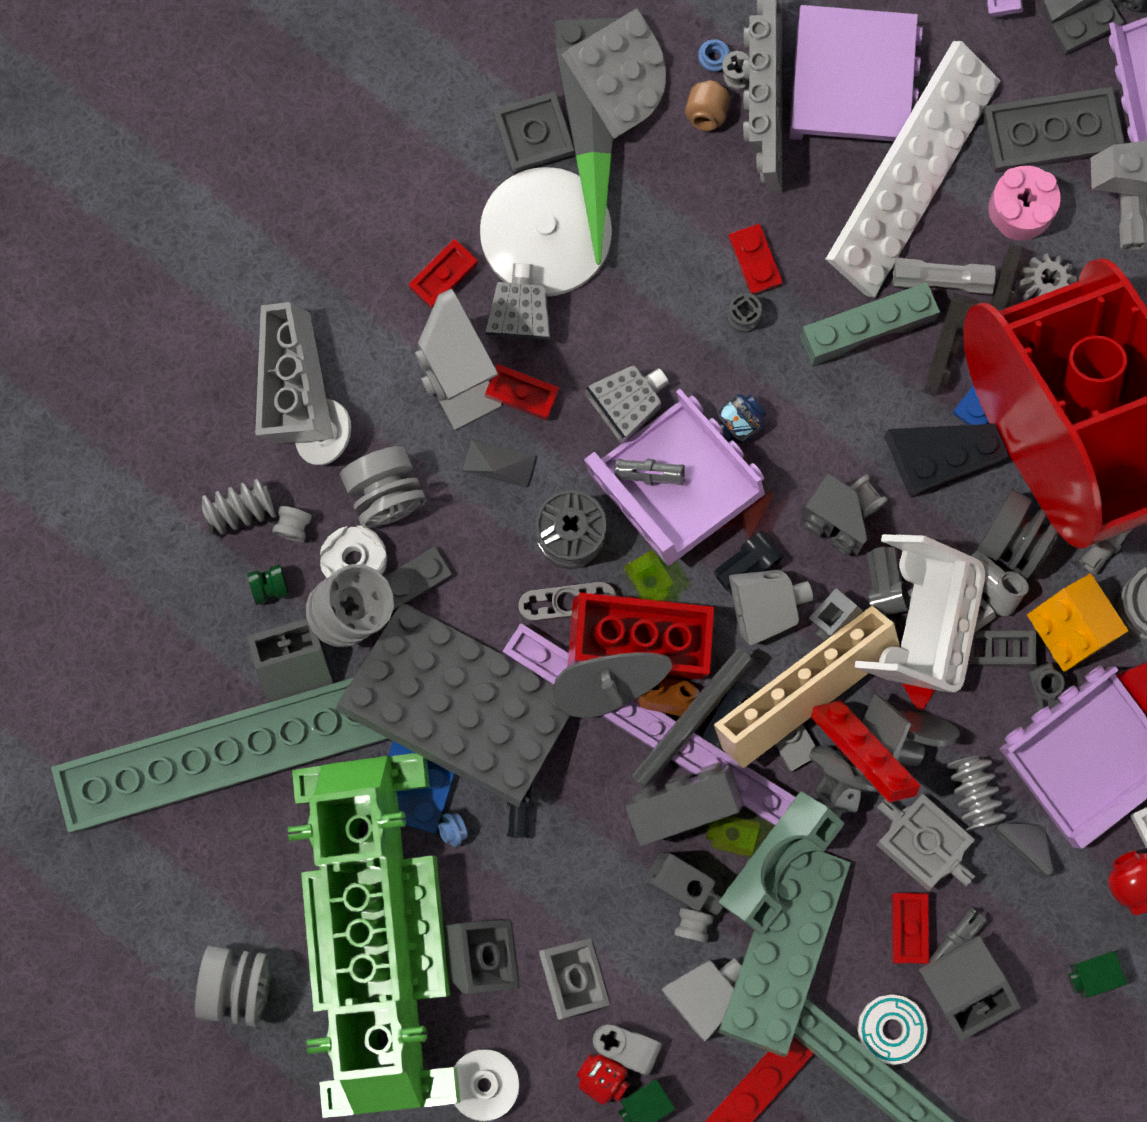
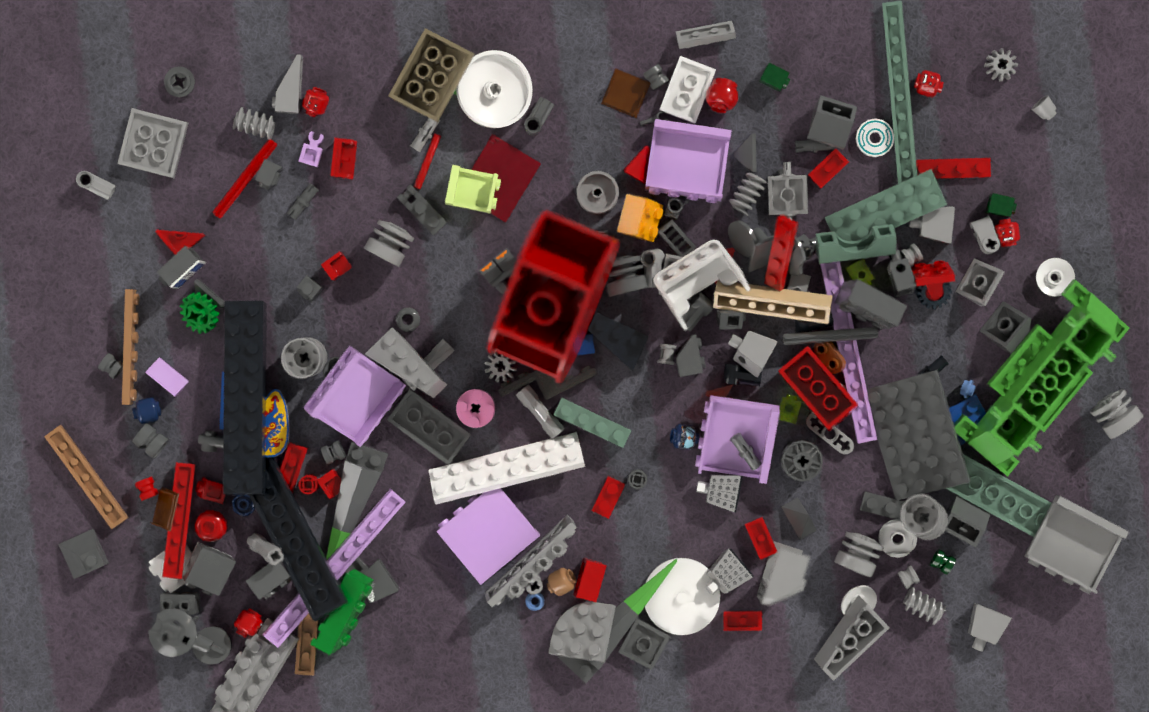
camera: 140 degrees left, 10 degrees up
(122, 767) = (1074, 544): none -> light grey panel
(134, 561) = (986, 626): none -> light grey torso
(608, 682) = (851, 382): dark grey shield -> none
(632, 915) = (933, 283): none -> red plate
(676, 140) = (589, 580): none -> red hinge

